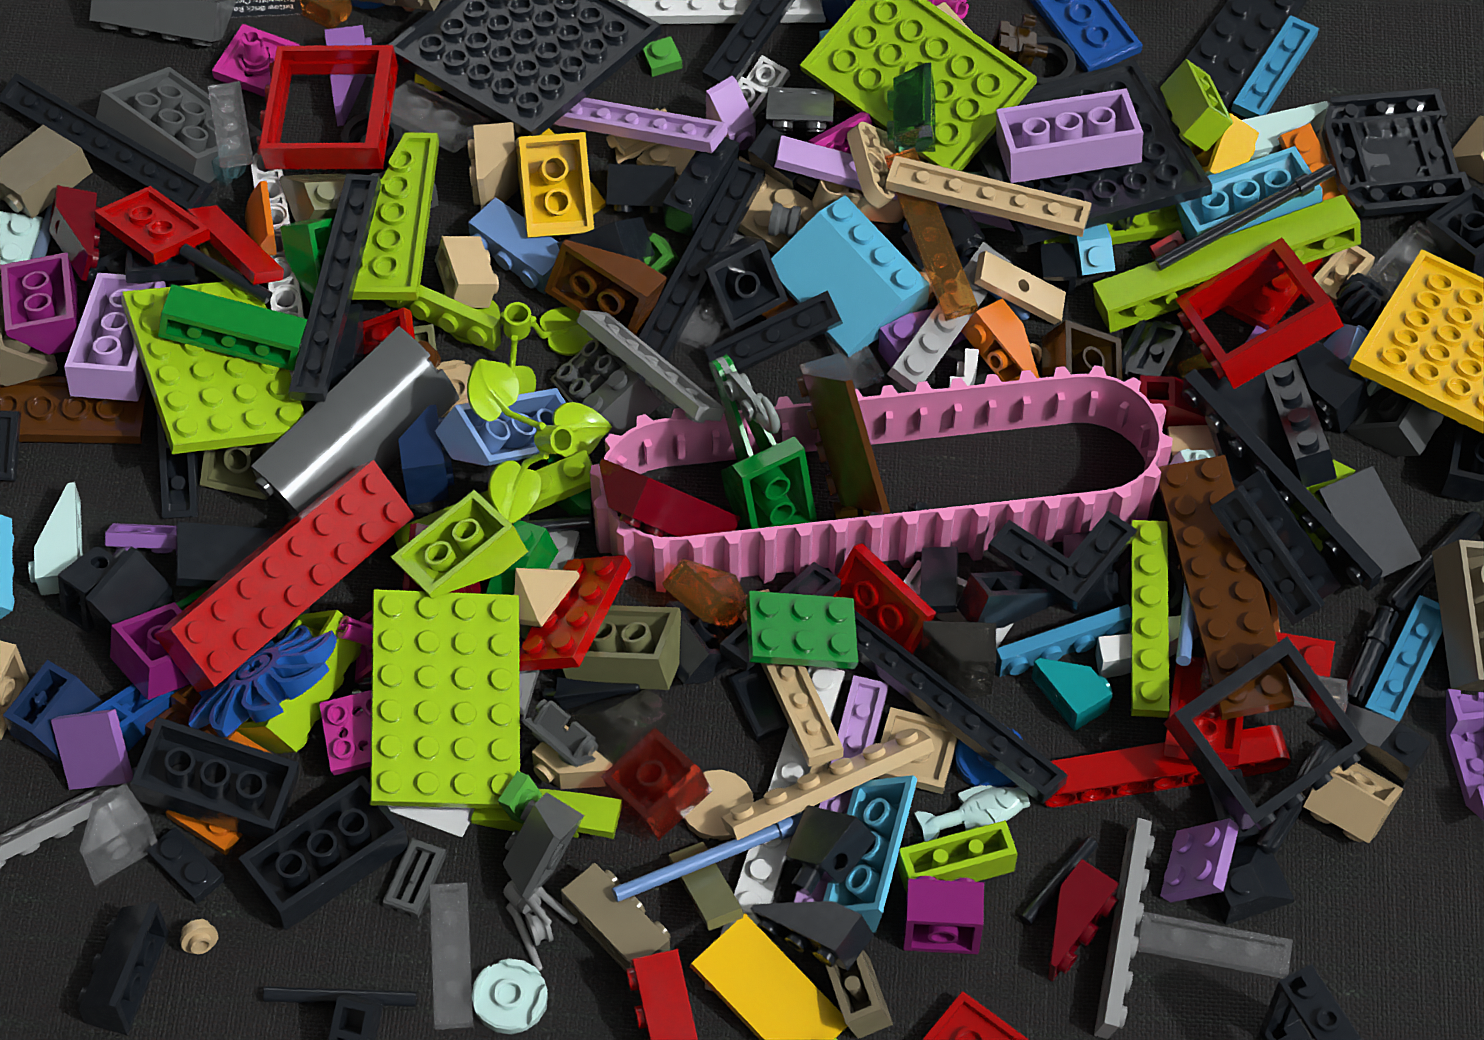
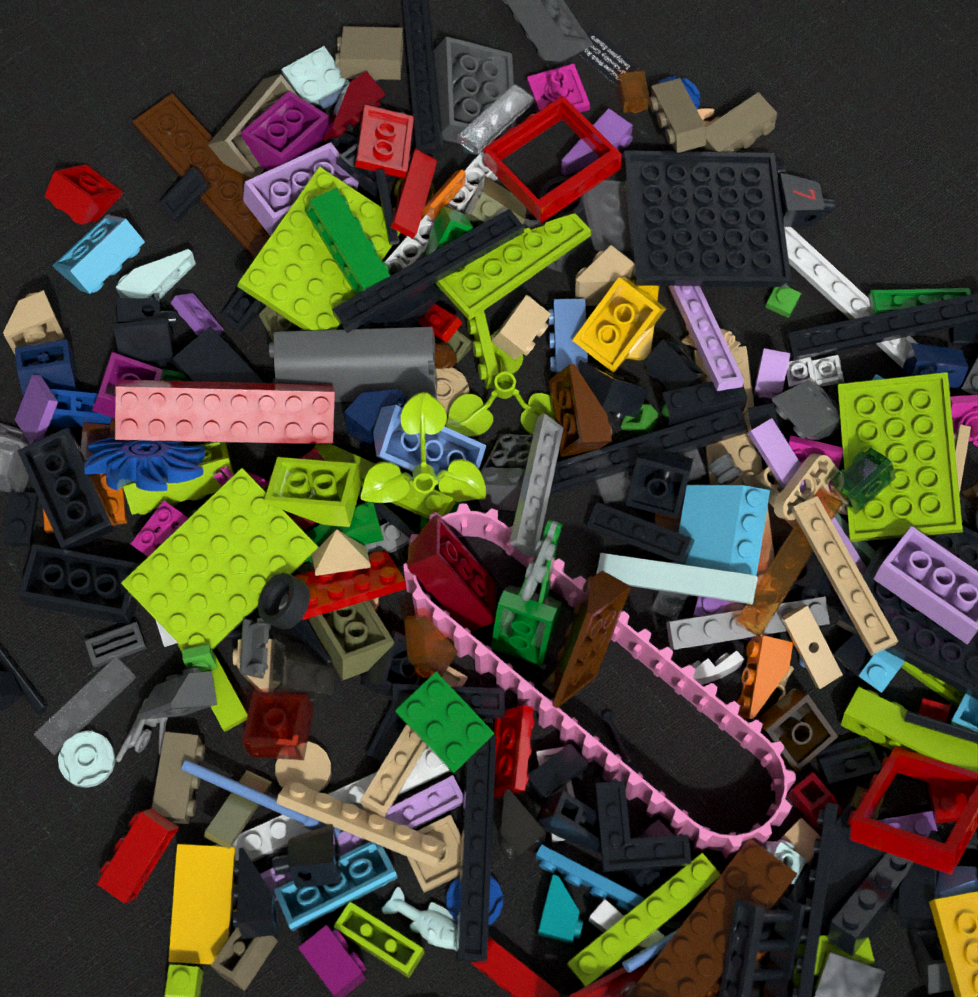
camera: 50 degrees right, 10 degrees up
(523, 670) = (272, 596): none -> black tyre
(858, 329) = (680, 578): none -> light aqua tile

